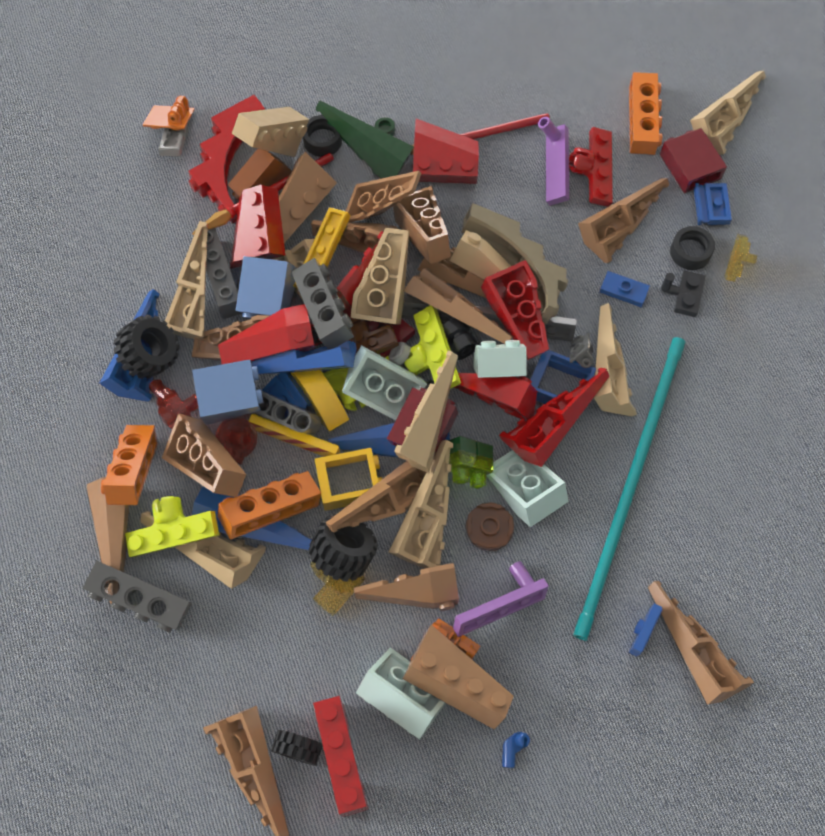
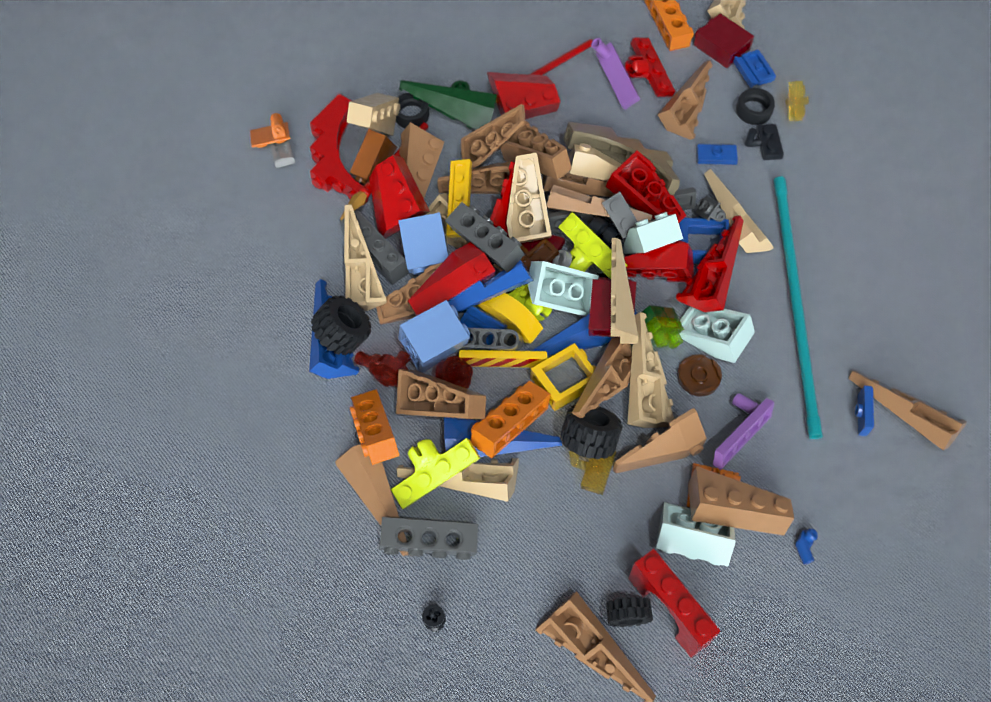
camera: 20 degrees left, 5 degrees down
(113, 684) = (439, 613): none -> black bush
(476, 324) = (620, 214): none -> plate

